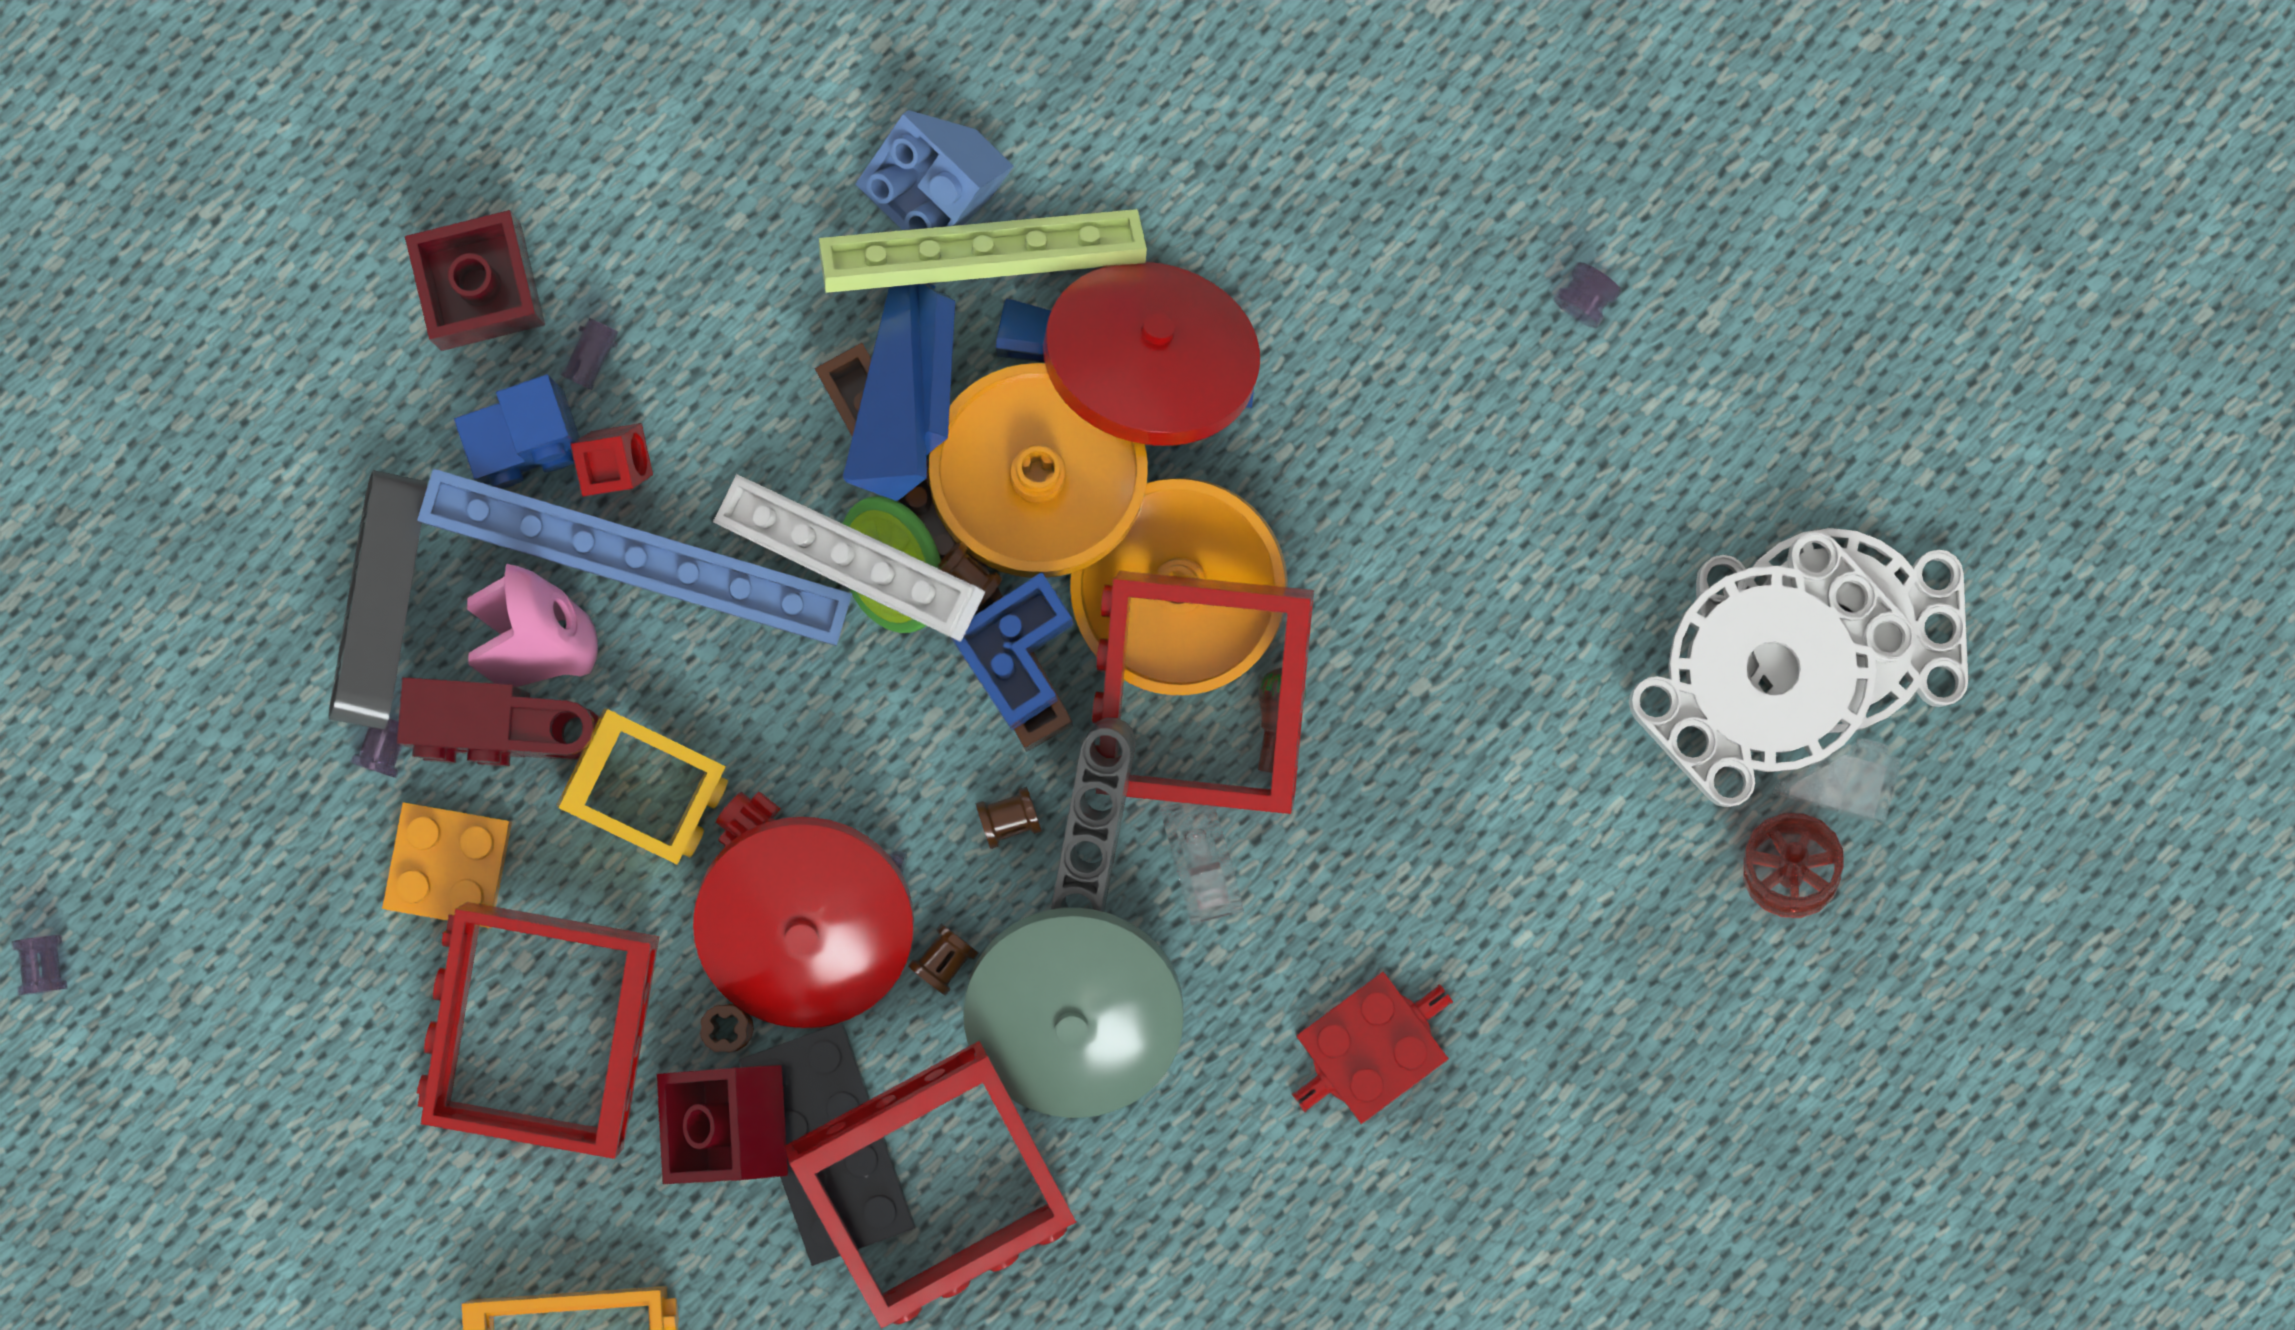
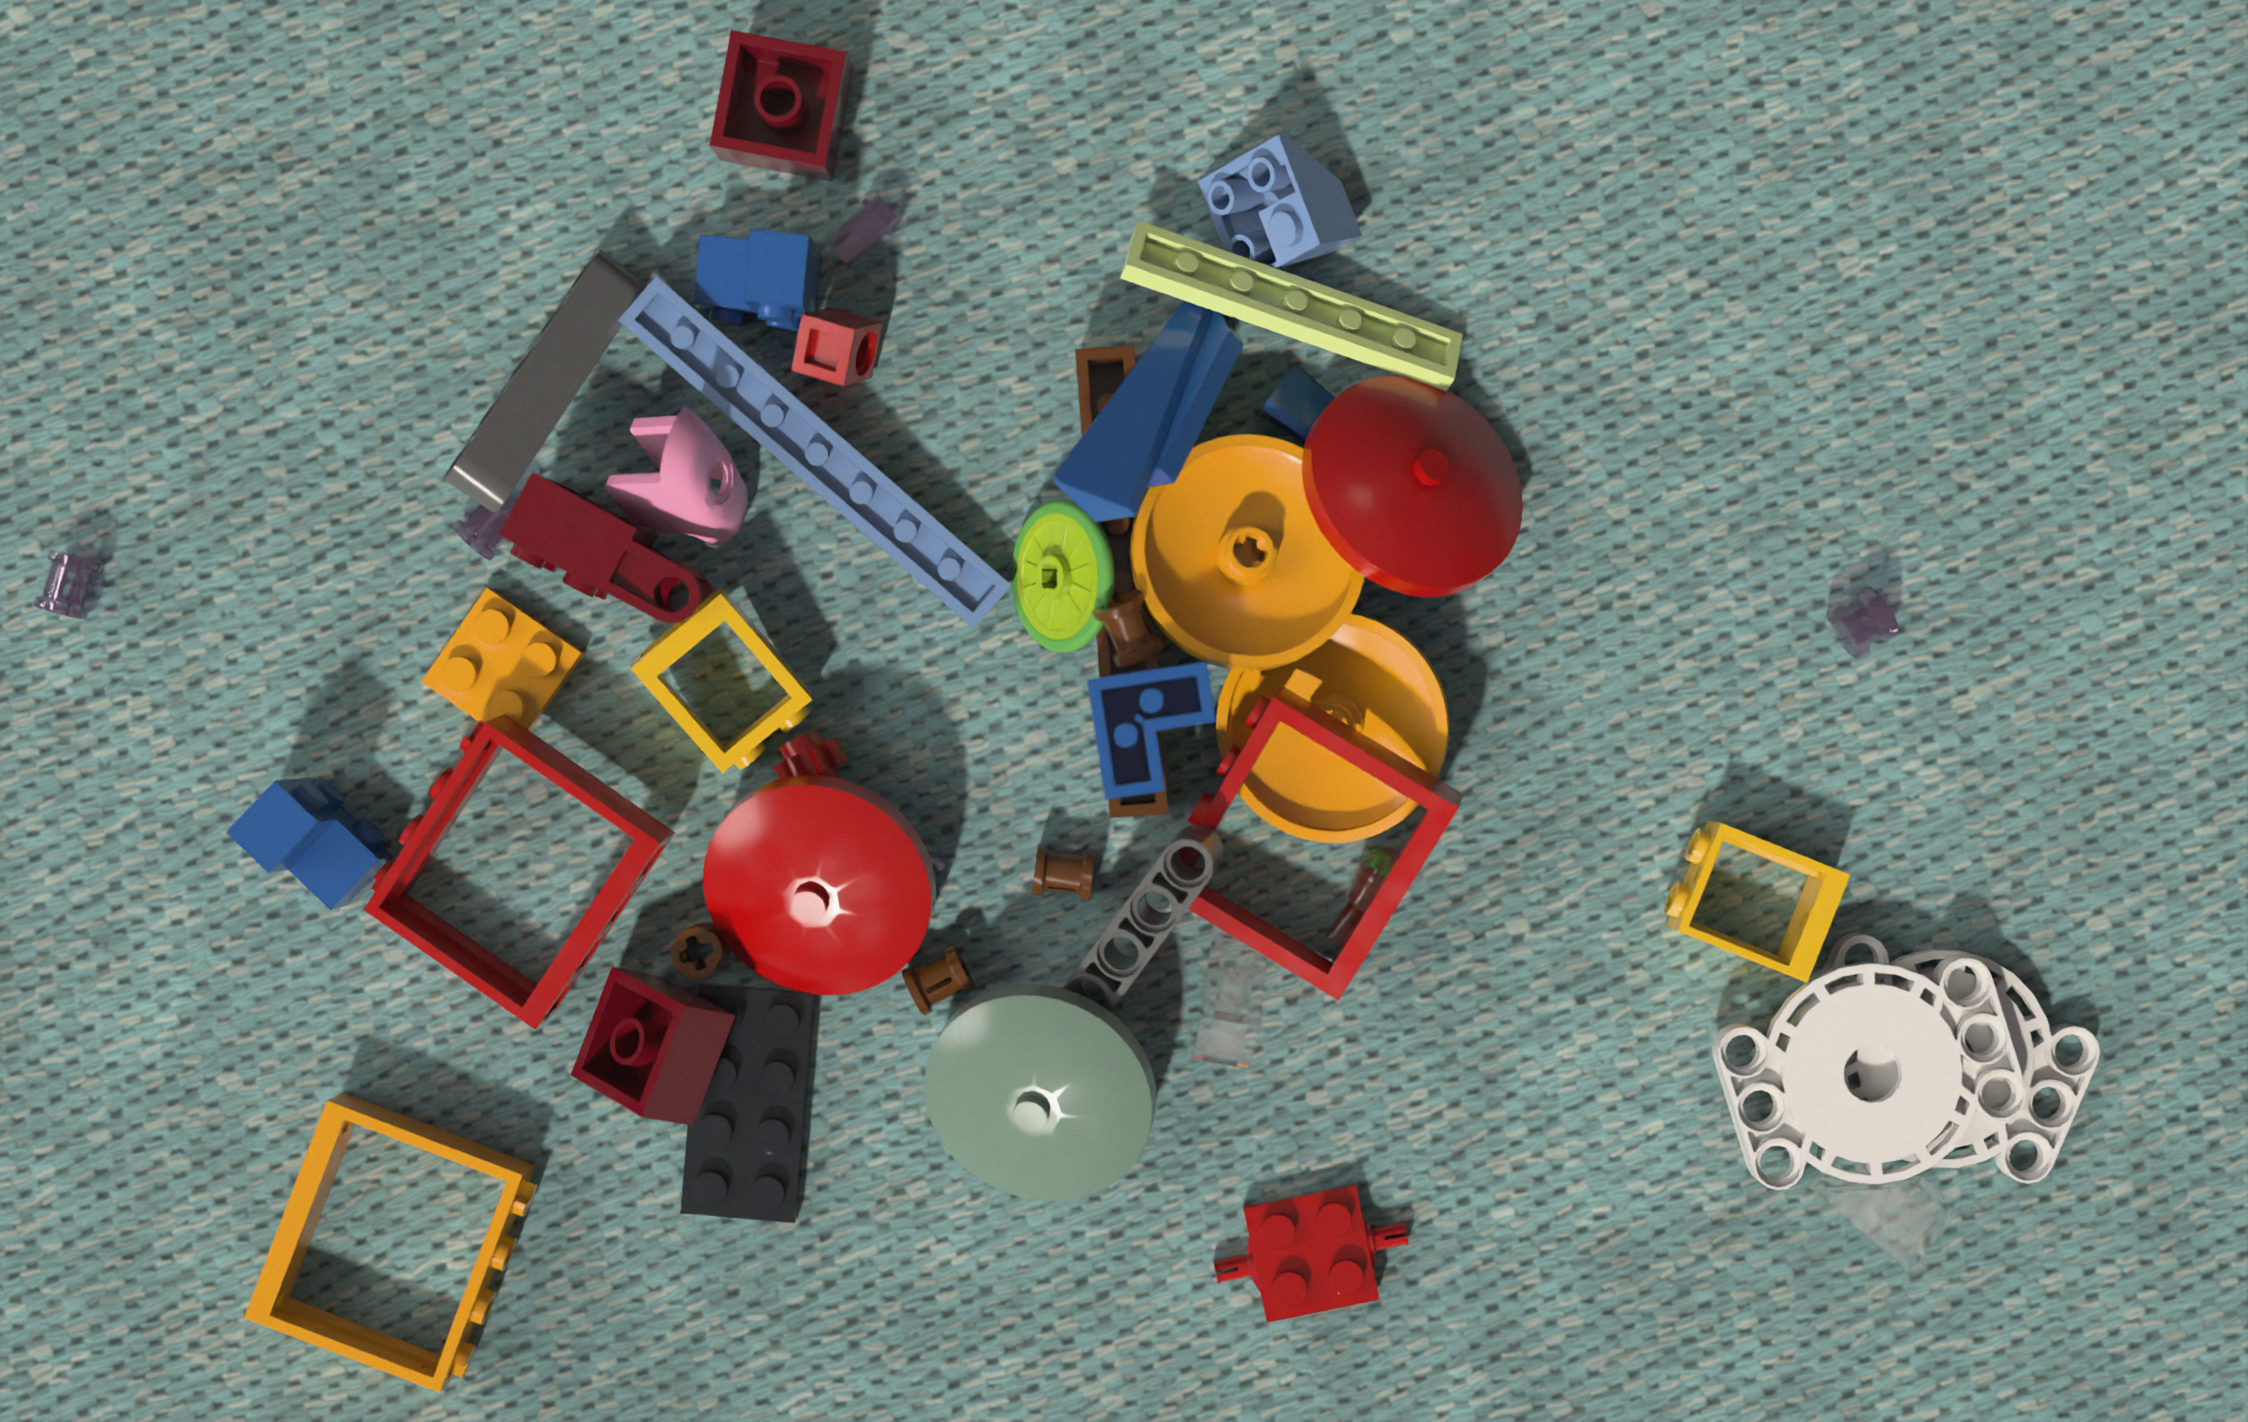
camera: 25 degrees right, 5 degrees up
(340, 1082) = (308, 832): none -> blue brick
(849, 557) = (1025, 556): white tile -> none
(892, 1111) = (819, 1114): red window -> none
(1662, 567) = (1809, 921): none -> yellow window
(1793, 865) = (1799, 1268): clear red wheel -> none

